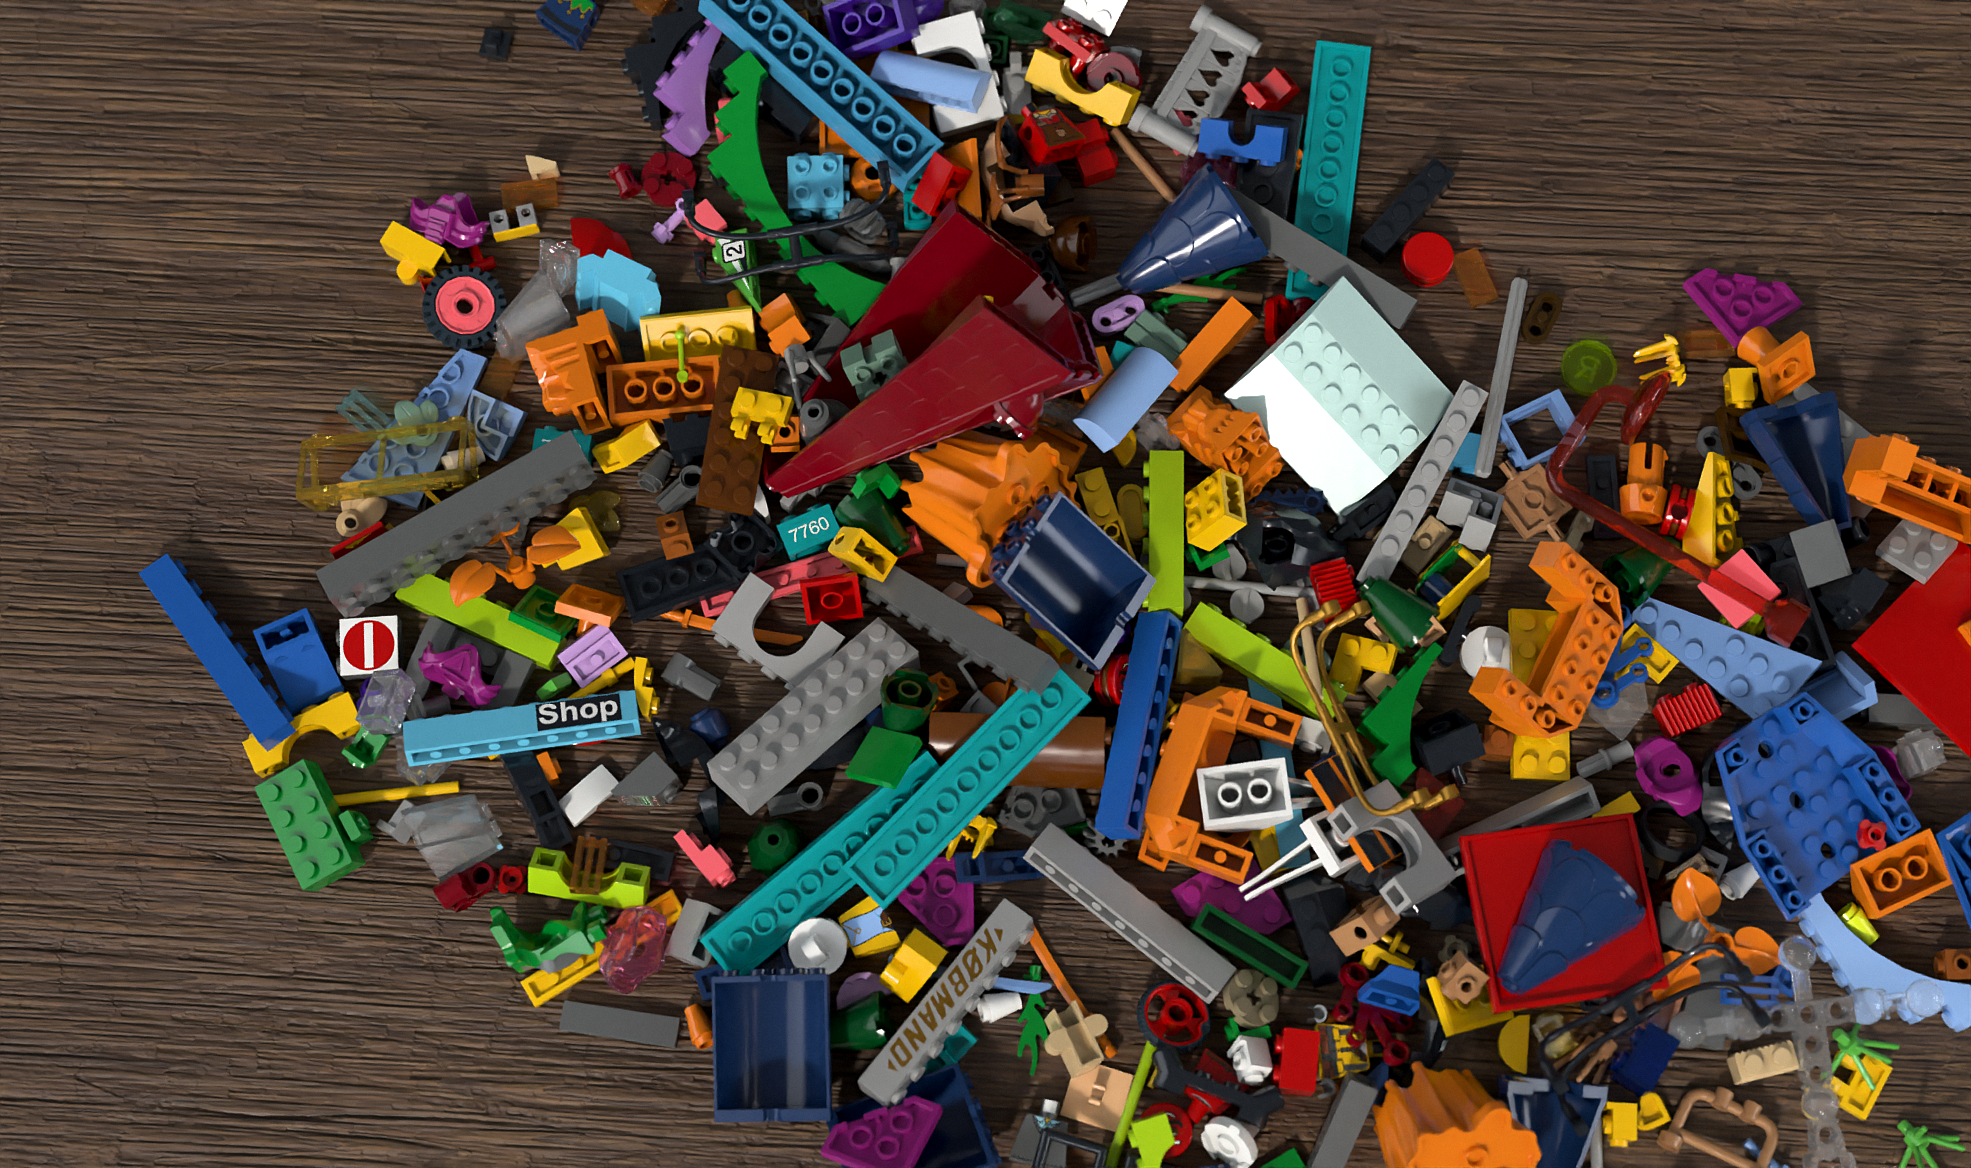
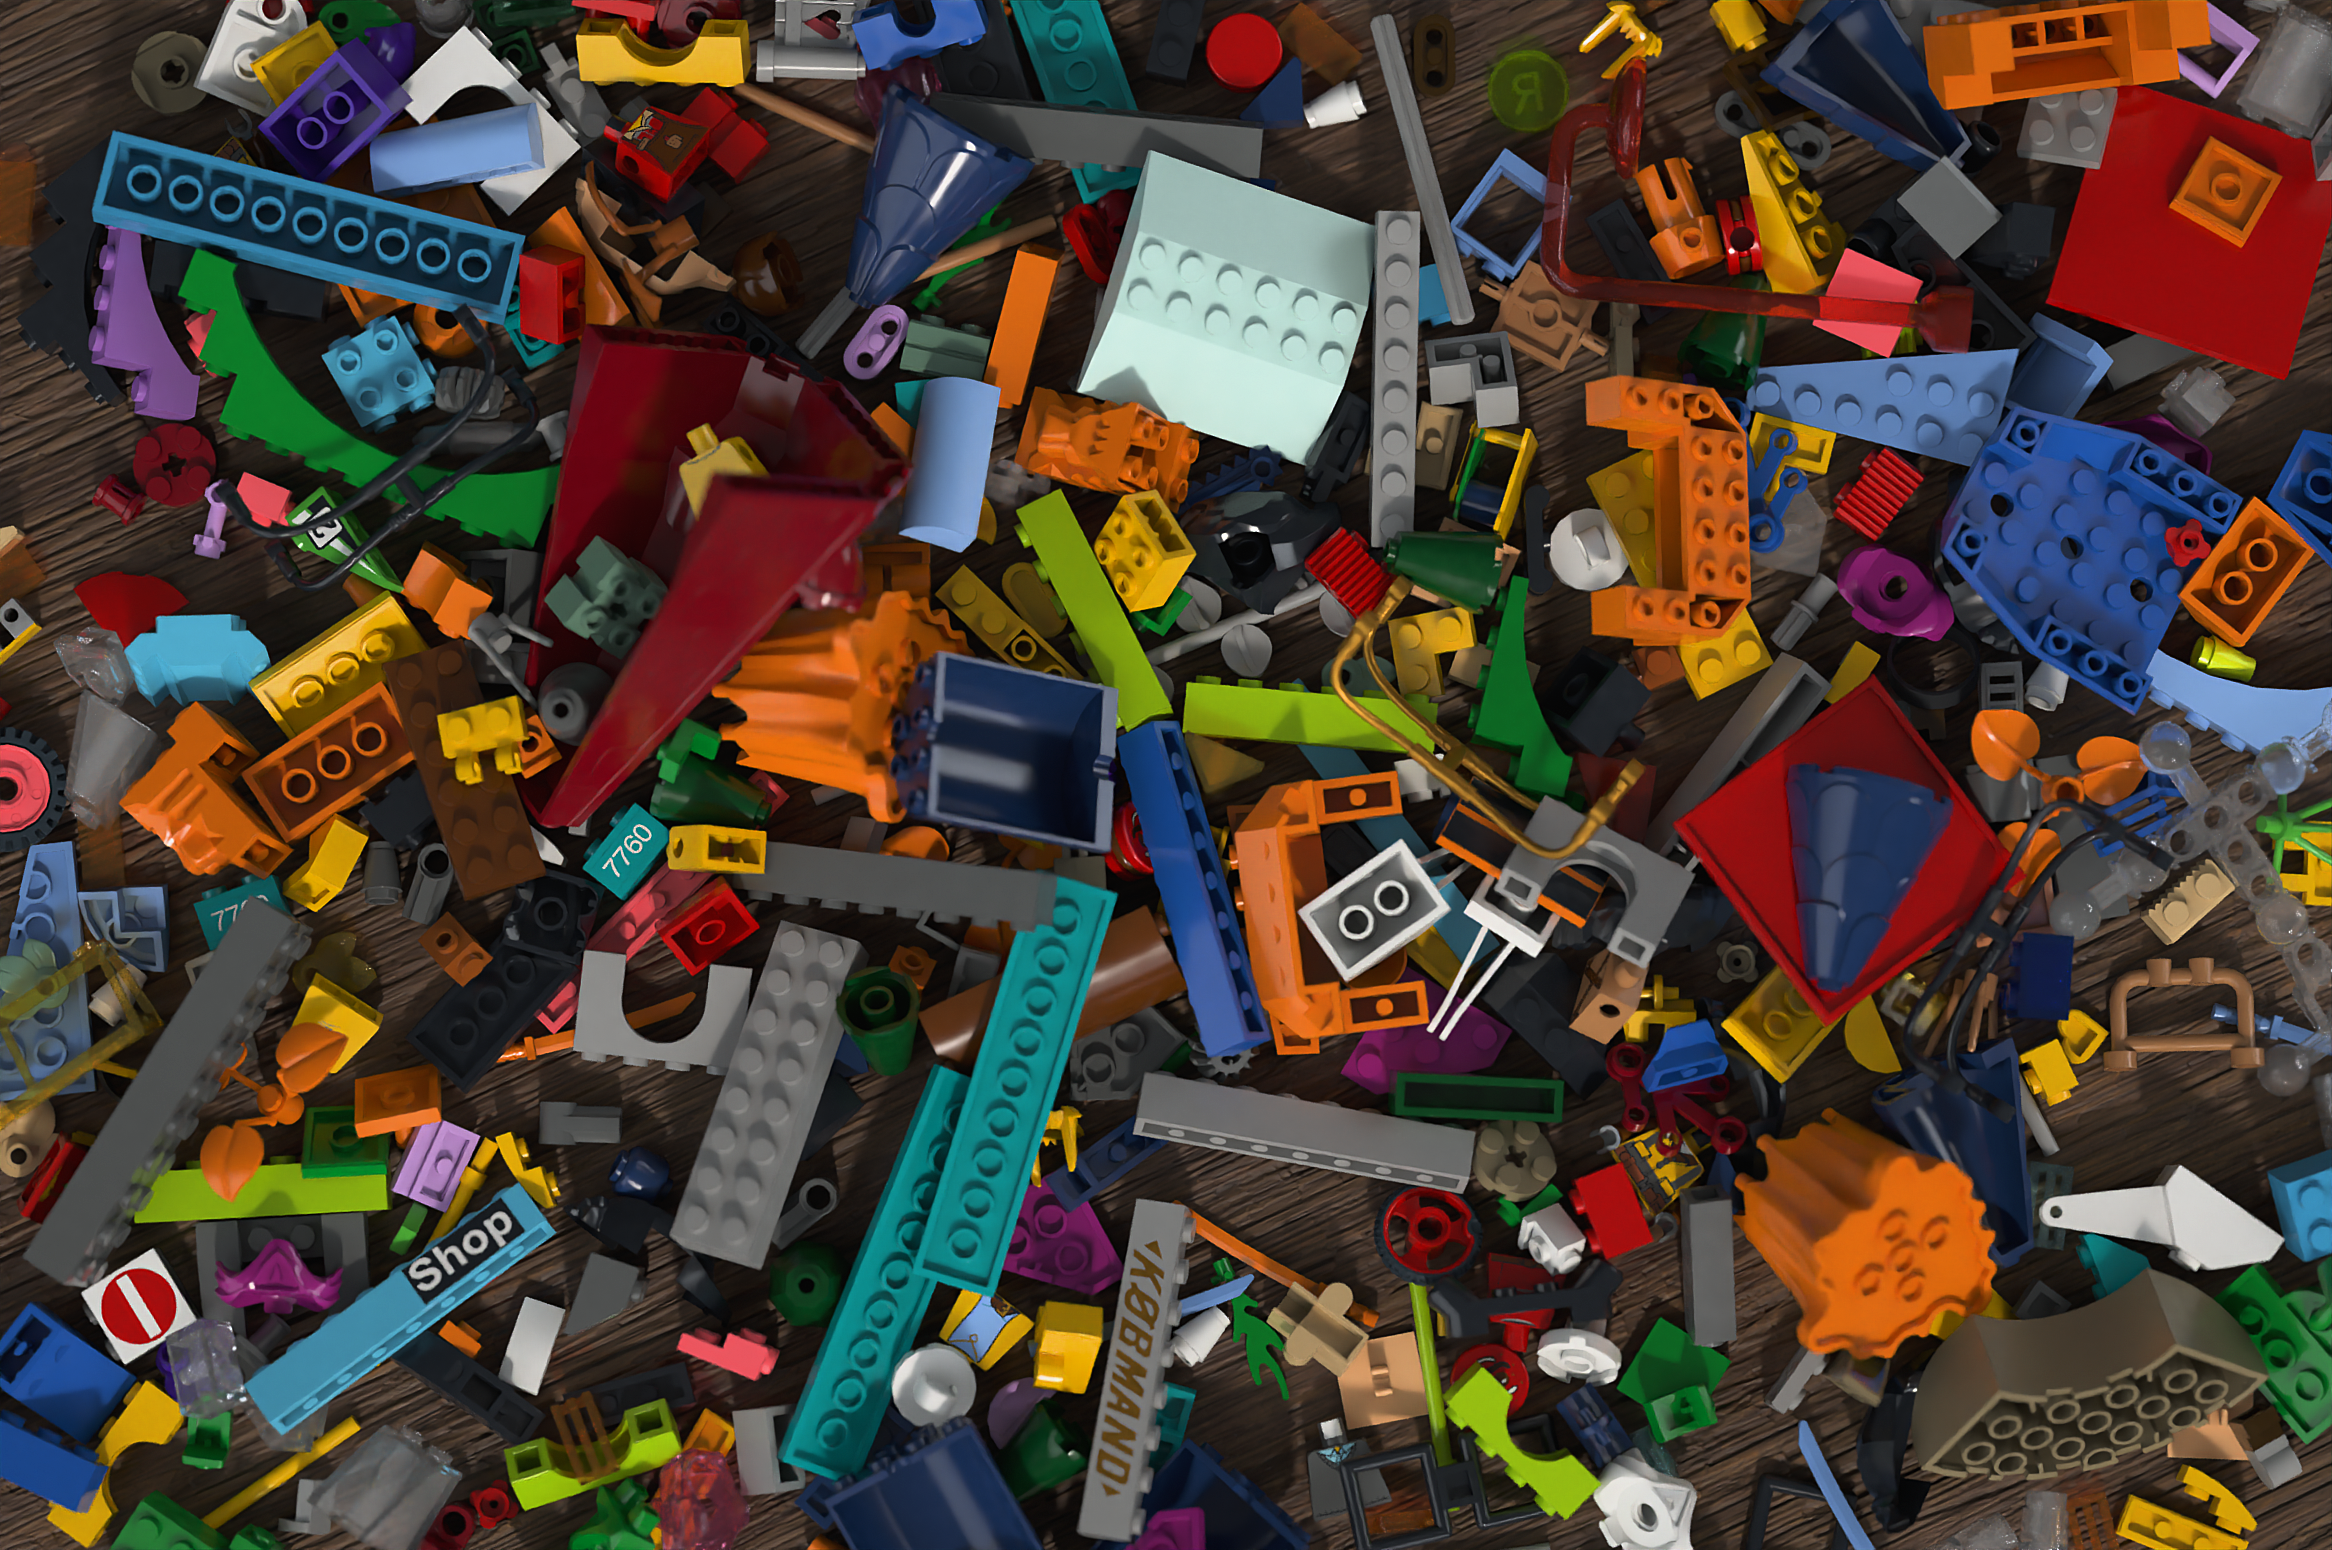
camera: 30 degrees left, 10 degrees up
(682, 375) = (350, 735): lime hinge -> none
(883, 757) = (889, 1103): green tile -> none
(1309, 646) = (1358, 670): tan bar -> none
(1434, 296) = (1281, 101): none -> dark blue slope
(1461, 977) = (1764, 1002): medium nougat brick -> none
(1466, 316) = (1336, 105): none -> white cone
(1705, 867) = (1998, 690): clear orange tile -> none

